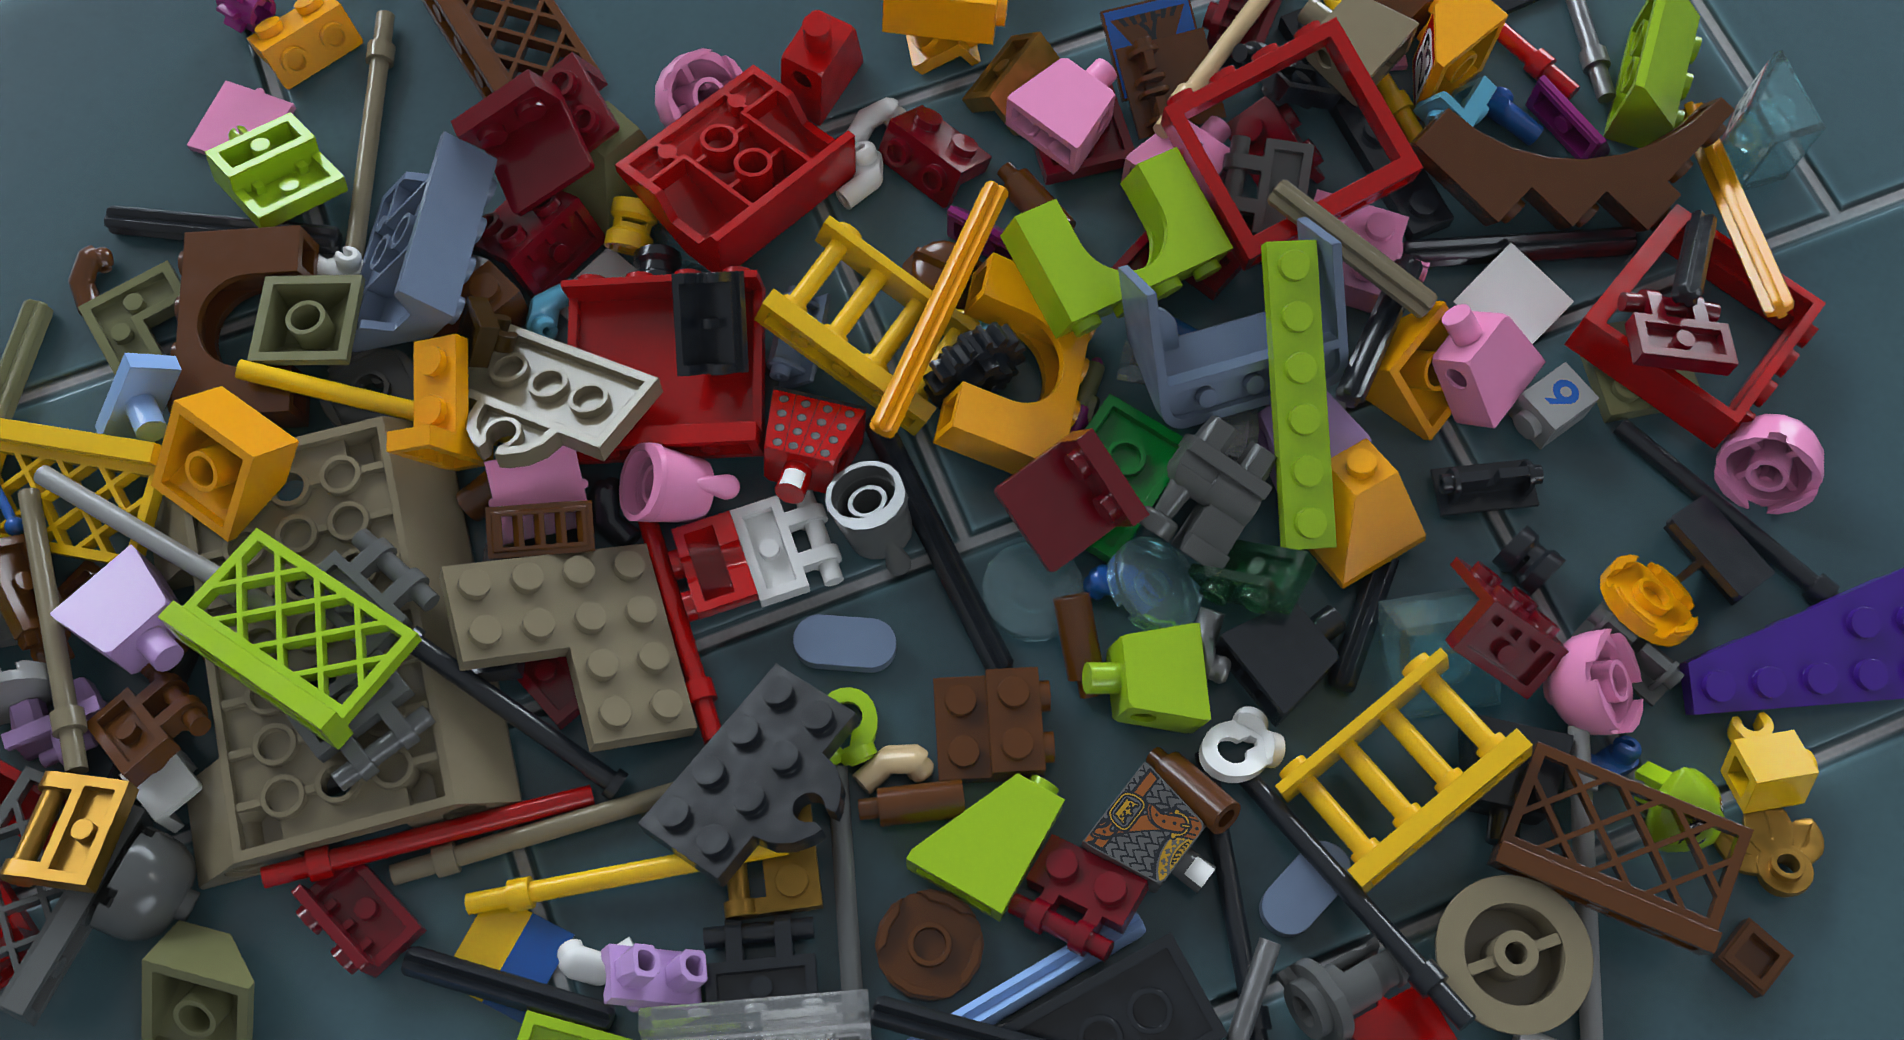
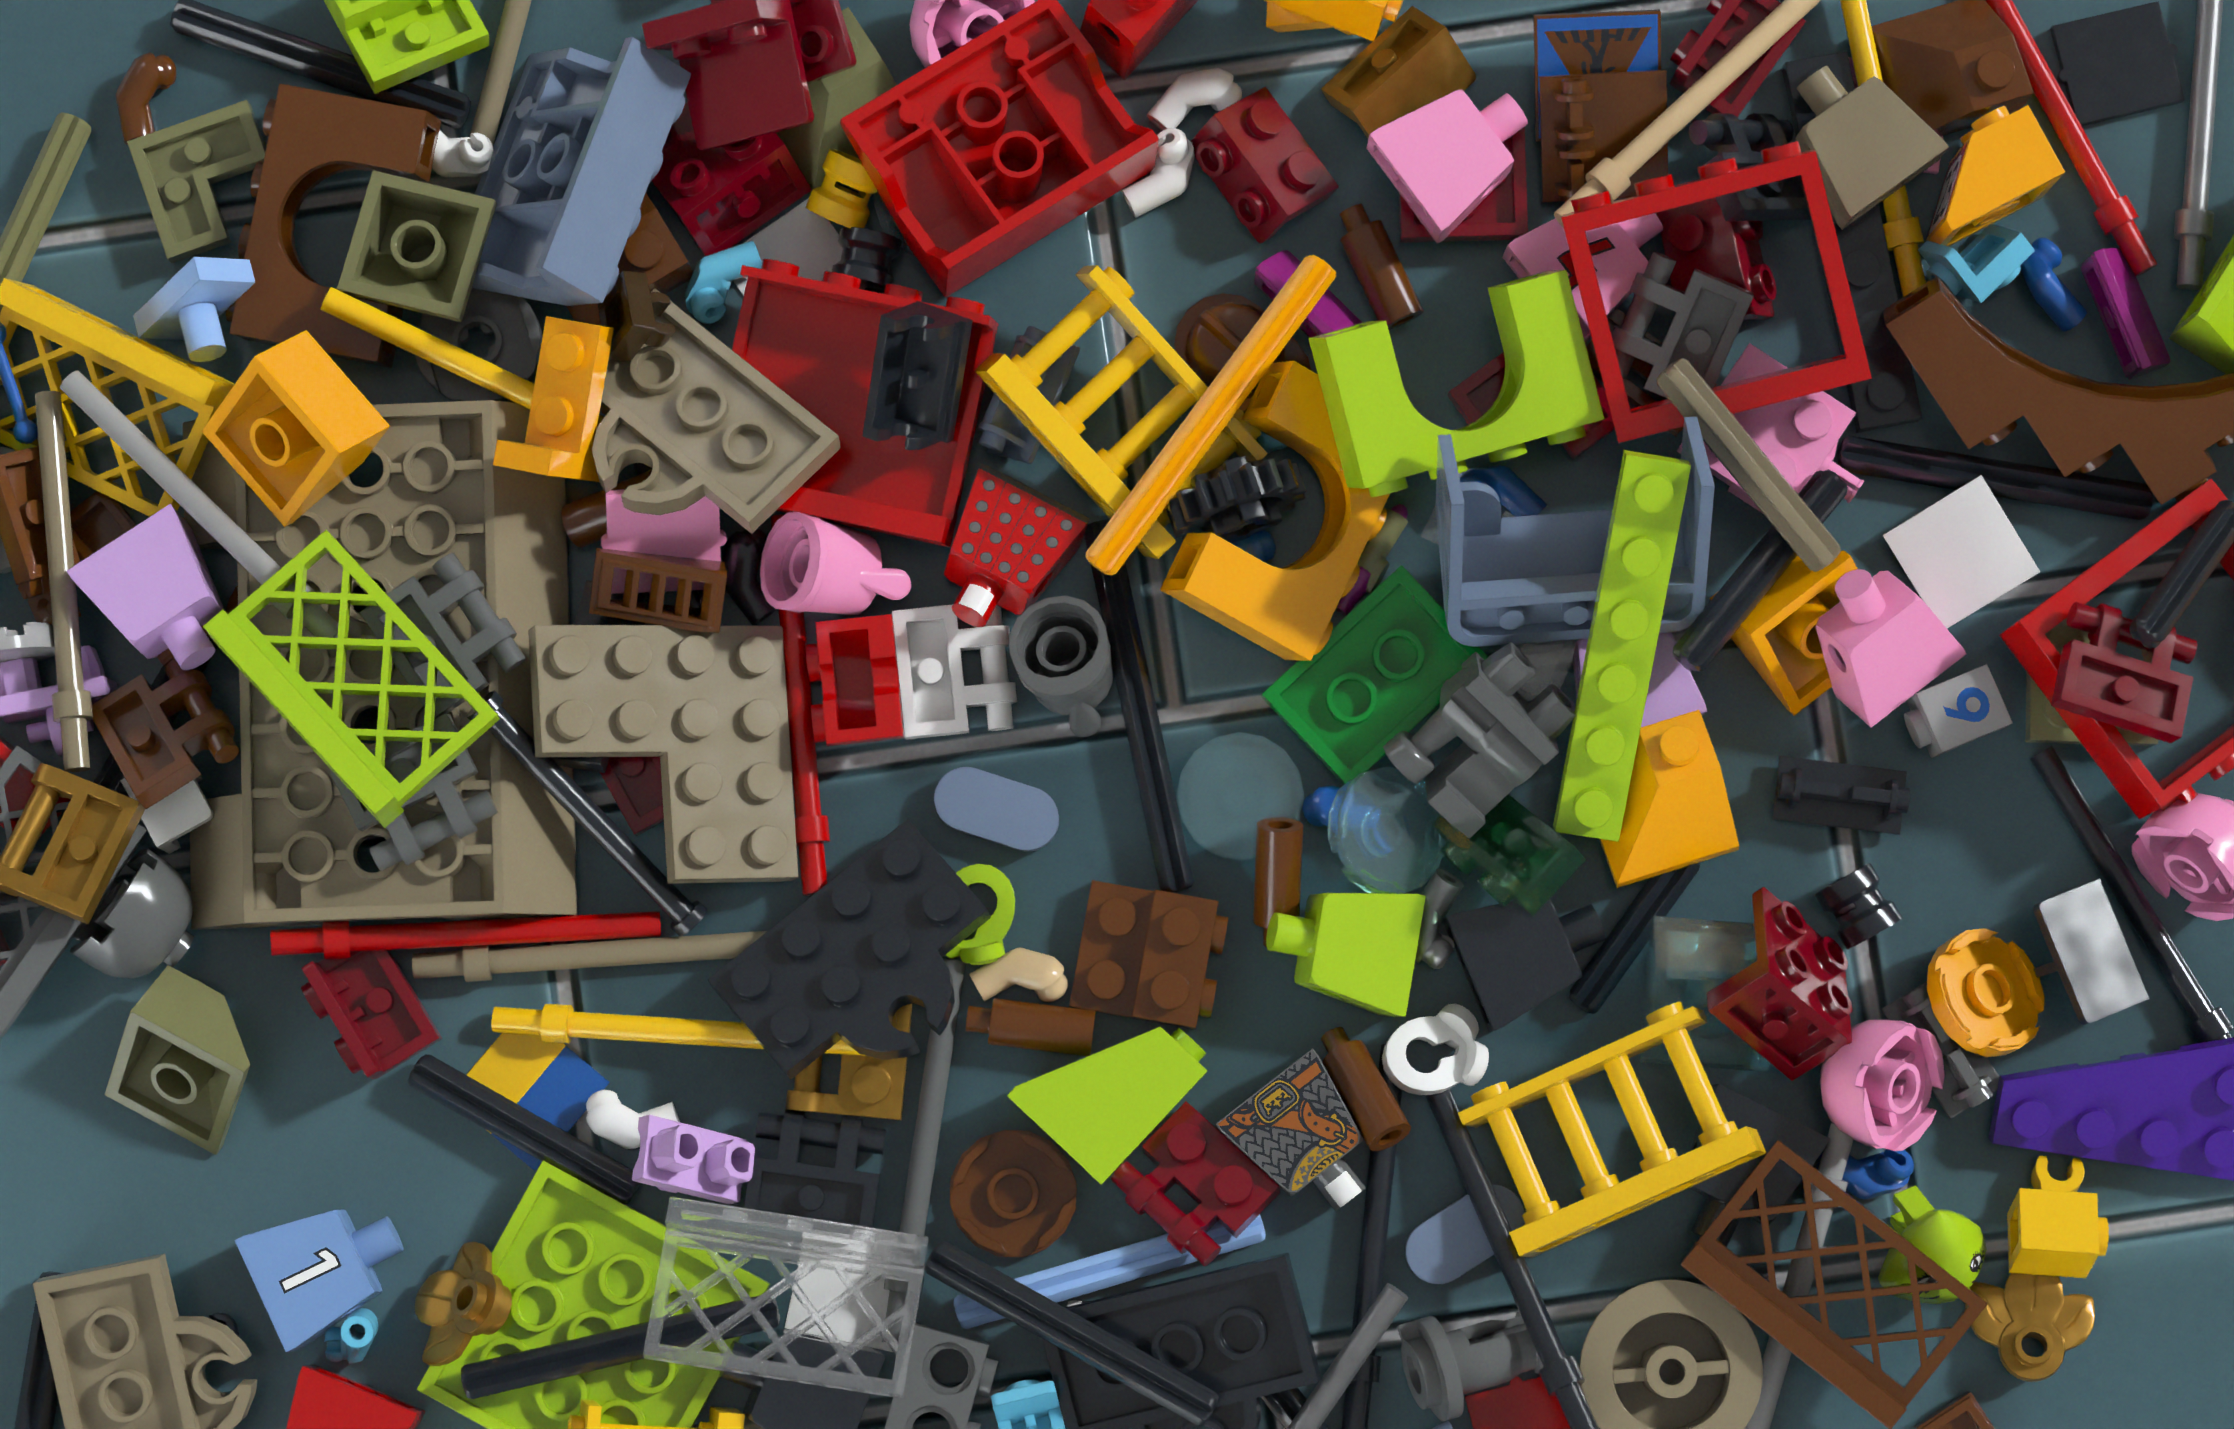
camera: 15 degrees right, 15 degrees up
(1069, 498) = (1303, 707): dark red bracket -> none

